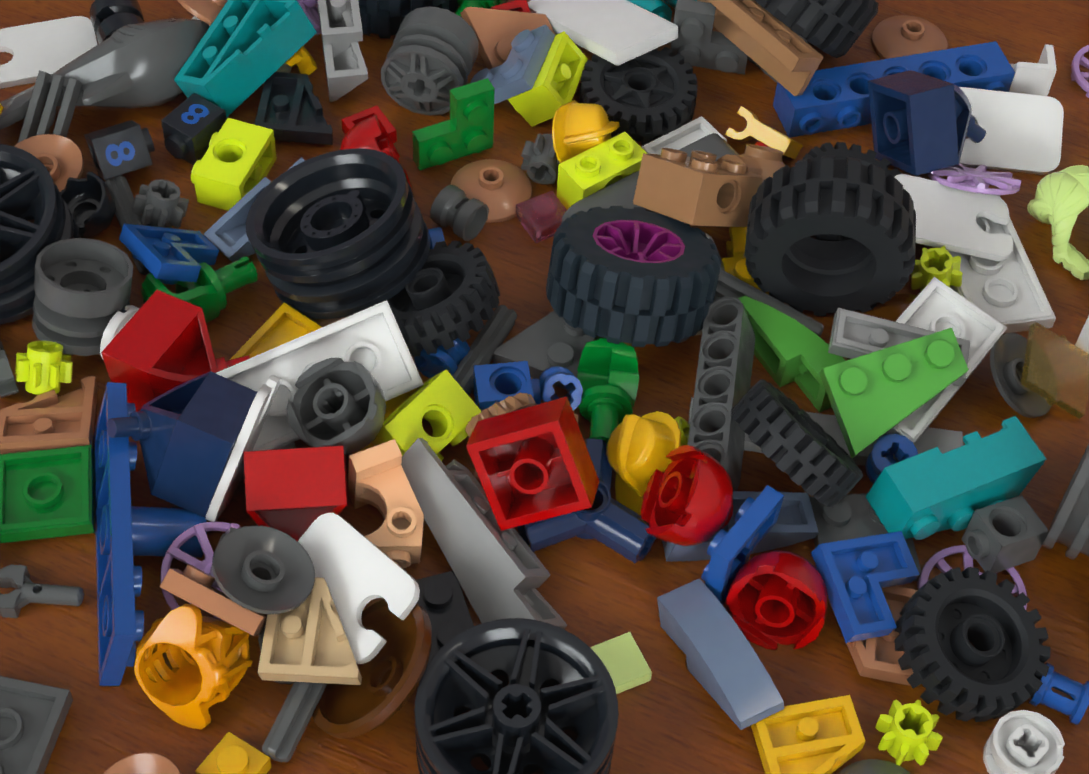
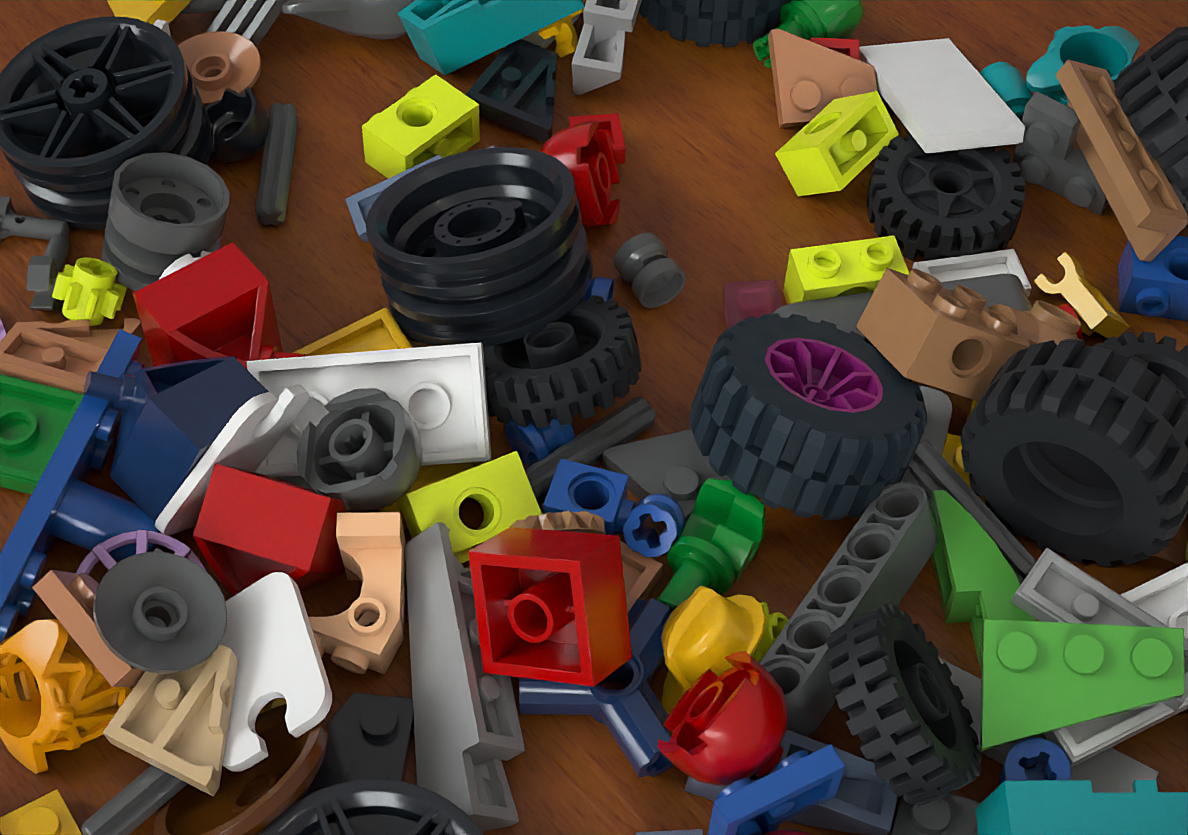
camera: 25 degrees right, 0 degrees up
(120, 149) = (303, 74): black brick -> none
(160, 204) = (313, 151): dark grey gear -> none
(169, 252) = (286, 206): blue plate -> none
(190, 128) = (394, 71): black brick -> none
(210, 288) = (302, 273): green piece -> none
(429, 58) = (702, 79): dark grey wheel -> none
(465, 133) = (704, 177): green plate -> none
(495, 184) = (711, 253): nougat dish -> none
(521, 66) = (799, 123): sand blue plate -> none
(540, 160) = (783, 232): dark grey gear -> none
(579, 128) = (837, 213): yellow piece -> none

